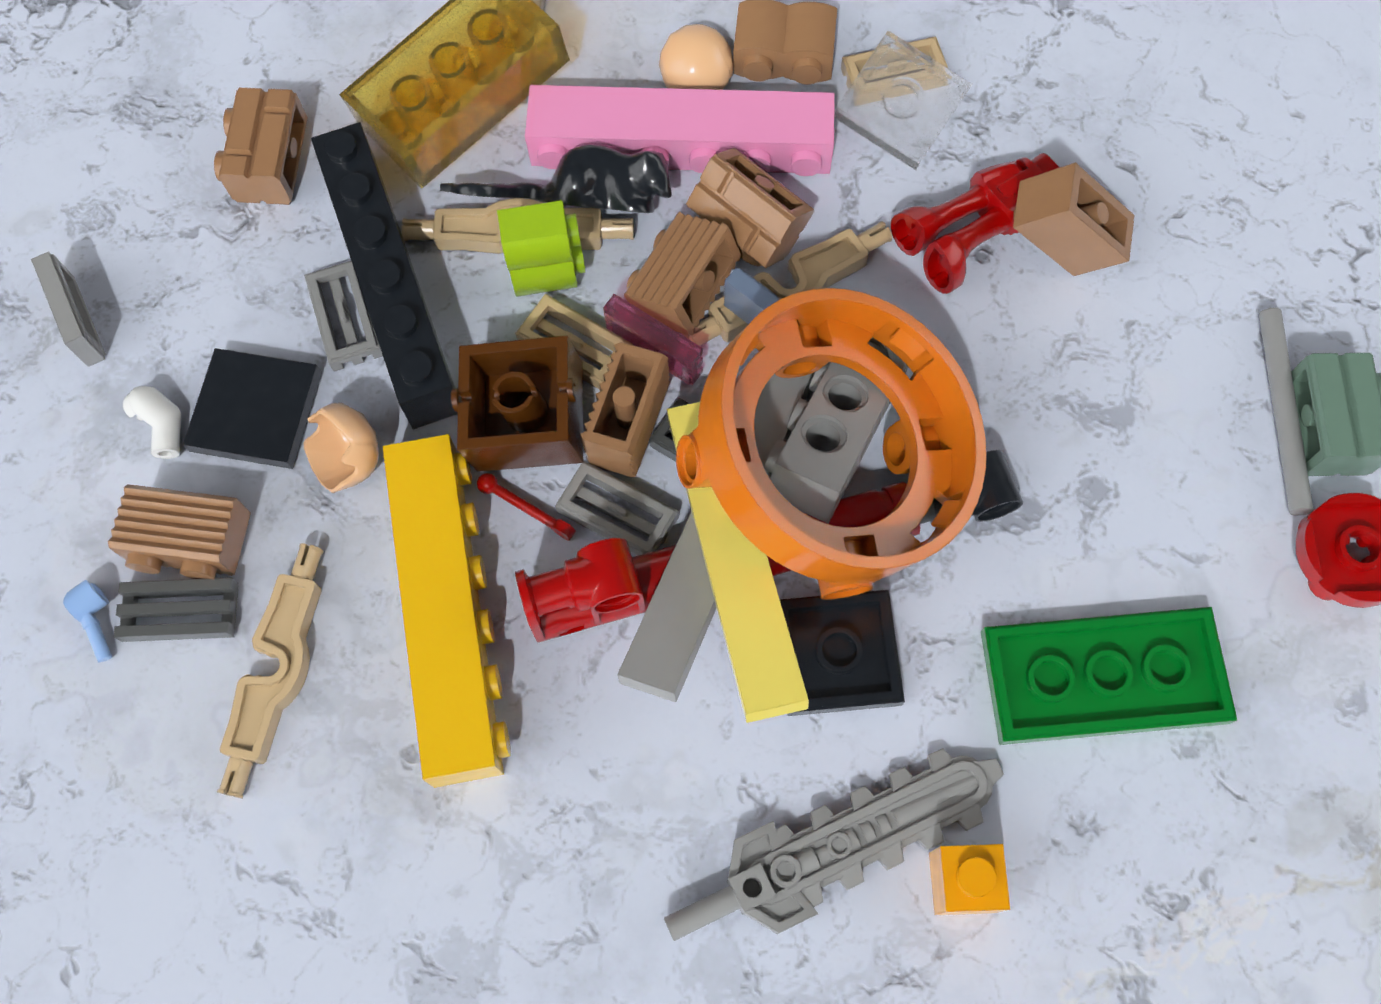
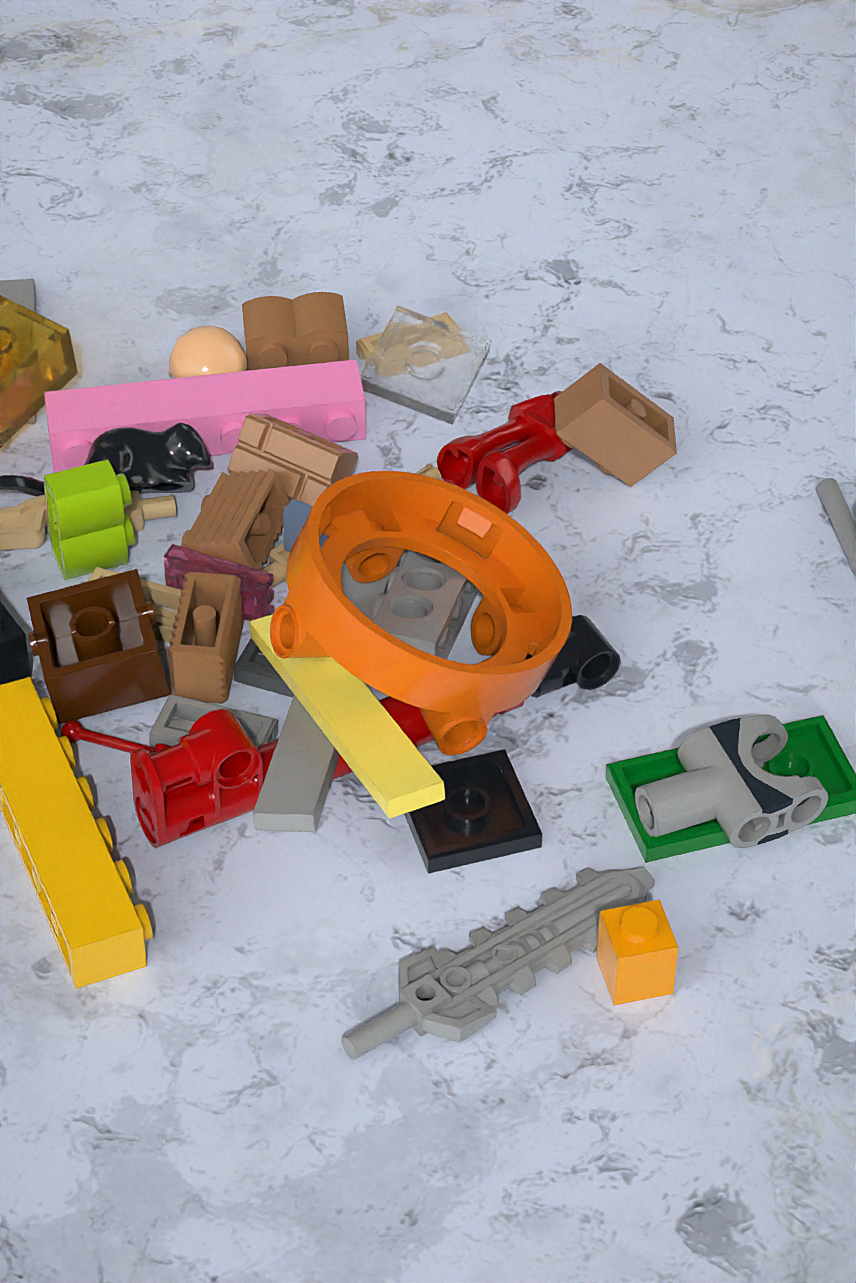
camera: 15 degrees left, 25 degrees down
(1098, 698) = (730, 786): none -> light grey connector

